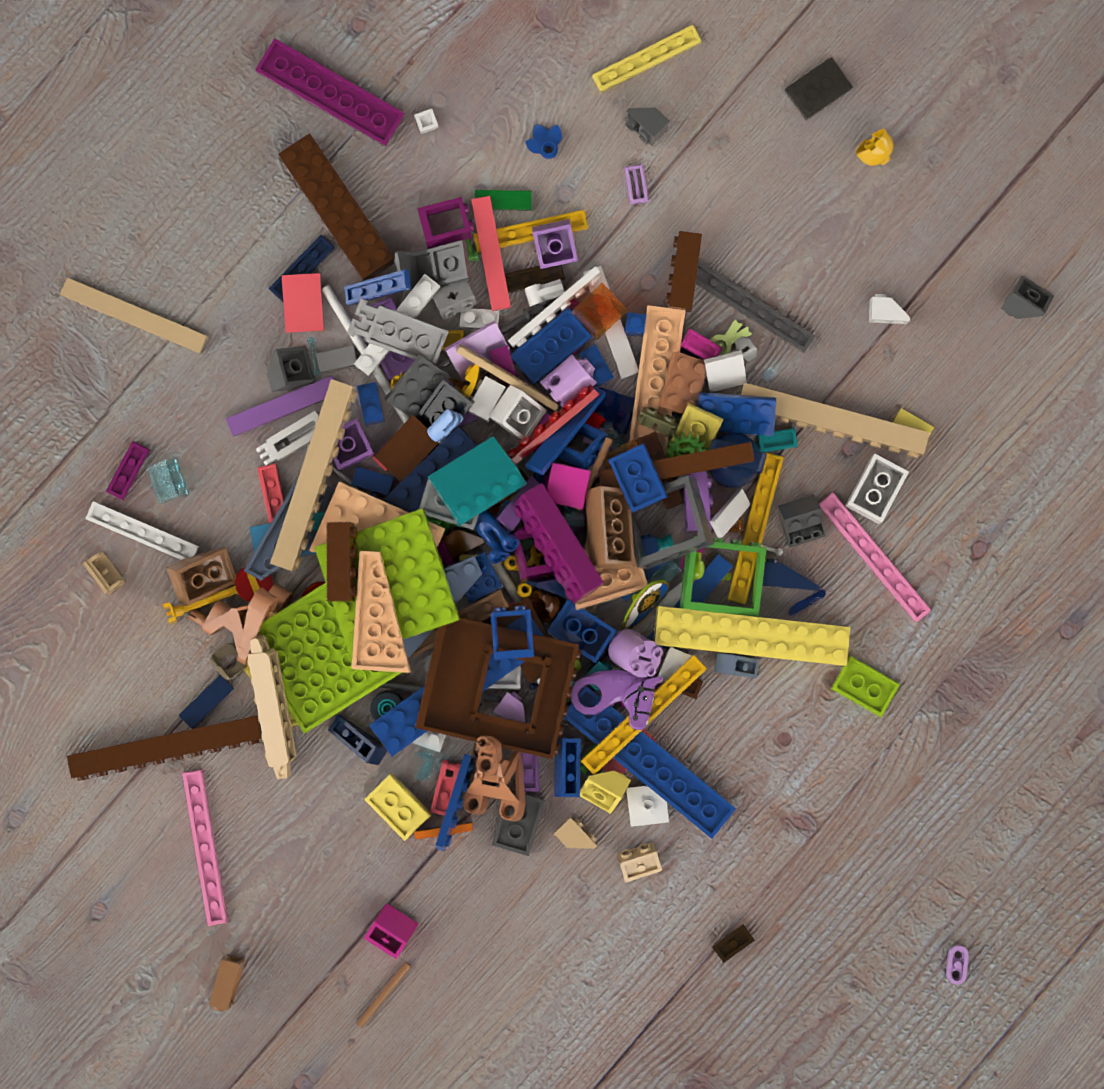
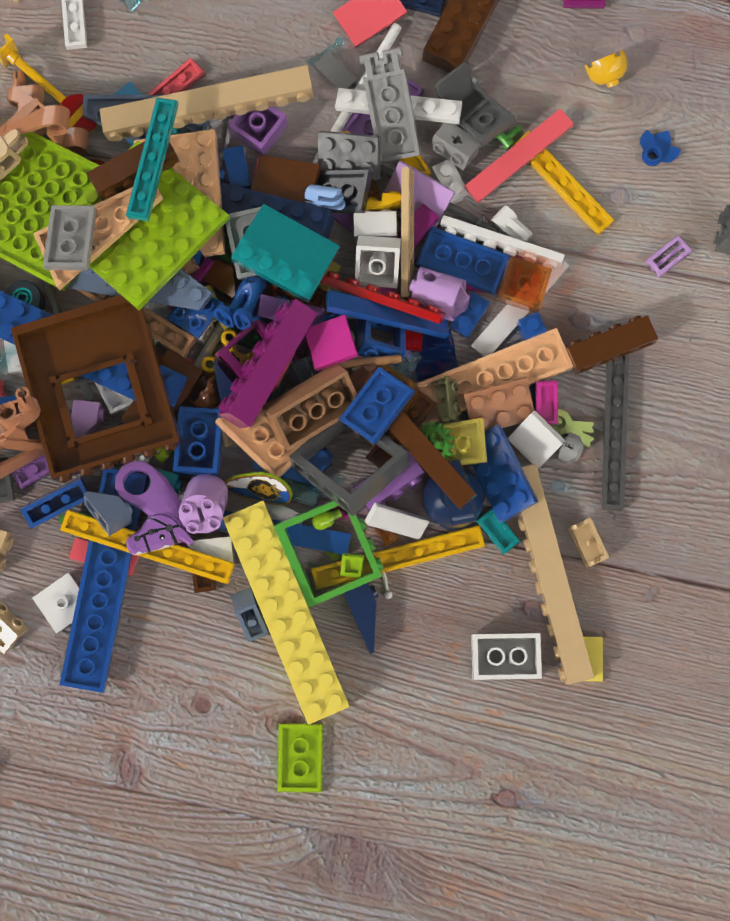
camera: 65 degrees right, 5 degrees down
(201, 575) = (58, 61): medium nougat slope -> none
(278, 407) = (253, 41): medium lavender tile -> none
(289, 369) = (300, 34): dark grey slope -> none
(298, 434) = (219, 72): white hinge -> none
(347, 542) = (152, 159): none -> teal tile
(370, 403) = (308, 124): blue brick -> none
(375, 641) = (69, 237): none -> light grey plate
(377, 287) = (425, 68): tile -> none
(426, 121) = (609, 30): white plate -> none
(449, 237) = (535, 86): magenta window -> none
(459, 142) = (608, 69): none -> yellow cylinder
(507, 199) = (580, 145): green tile -> none
(509, 654) = (139, 352): blue window -> none
(535, 275) = (509, 196): dark brown tile -> none
(555, 243) = (563, 207): medium lavender brick -> none
(601, 729) = (108, 511): none -> sand blue slope
(605, 789) = (54, 551): light yellow slope -> none
(665, 542) = (333, 474): teal wheel -> none
(743, 566) = (352, 565): none -> lime tile
(802, 520) = (431, 599): dark grey slope -> none
(806, 602) = (351, 649): clear blue piece -> none
(825, 377) = (588, 543): none -> tan hinge
(874, 557) = (436, 694): bright pink tile -> none
(886, 310) = (691, 567): white slope -> none

